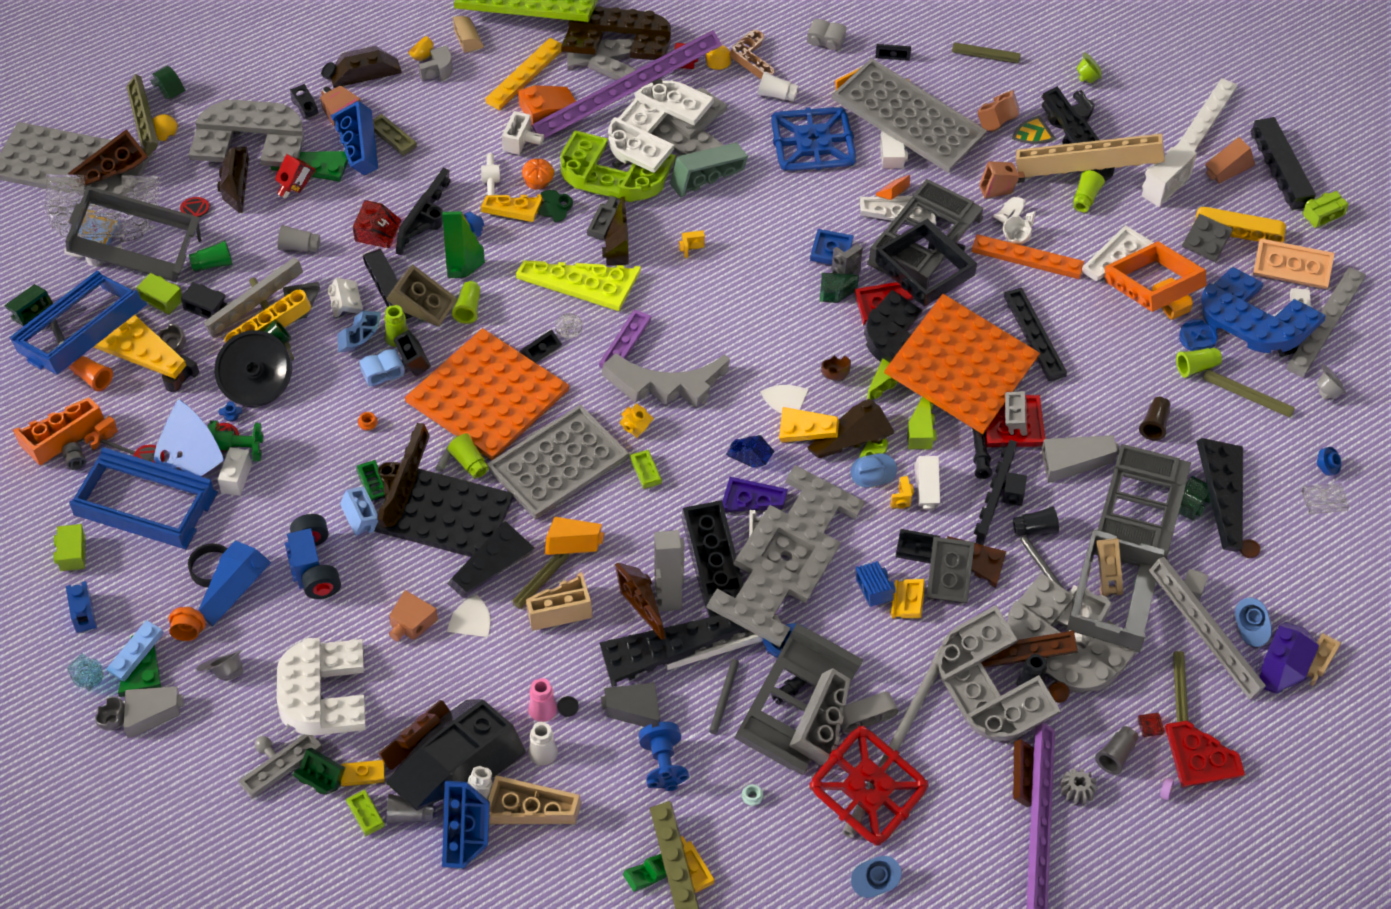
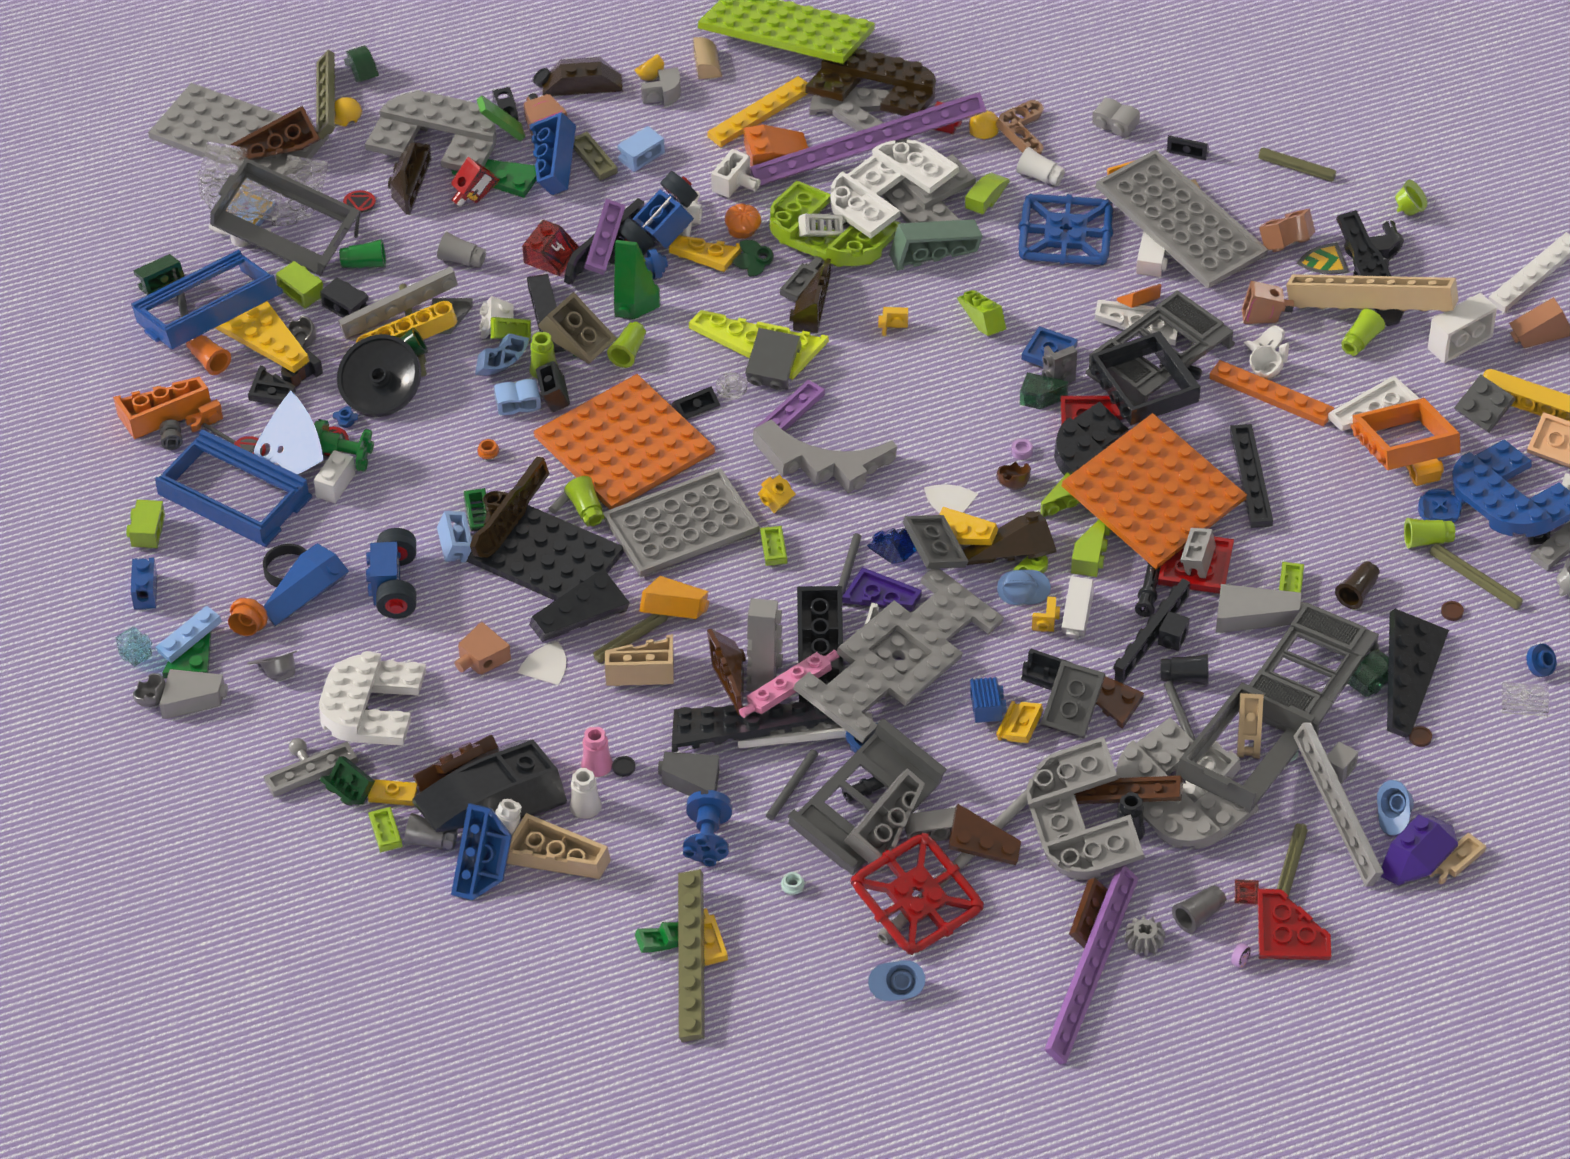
camera: 15 degrees right, 5 degrees down
(156, 396) = (269, 388): none -> black wing
(304, 113) = (500, 118): none -> bright green tile
(357, 304) = (503, 326): none -> lime plate
(424, 208) = (604, 236): none -> medium lavender plate
(432, 122) = (641, 148): none -> light blue brick
(469, 180) = (662, 215): none -> brick
(597, 170) = (808, 228): none -> white slope
(599, 296) = (772, 359): none -> dark grey panel
(697, 601) = (782, 686): none -> bright pink plate
(715, 473) = (849, 562): none -> dark grey bar
(737, 117) = (985, 192): none -> lime slope
(766, 223) = (983, 312): none -> lime slope
(790, 443) = (935, 541): none -> dark grey plate
(834, 342) = (1022, 449): none -> lavender tile
(909, 719) = (981, 838): none -> reddish brown wing
(1059, 691) = (1154, 841): reddish brown piece -> none
(1097, 422) = (1291, 577): none -> lime plate
(1238, 427) = (1452, 610): none -> reddish brown piece

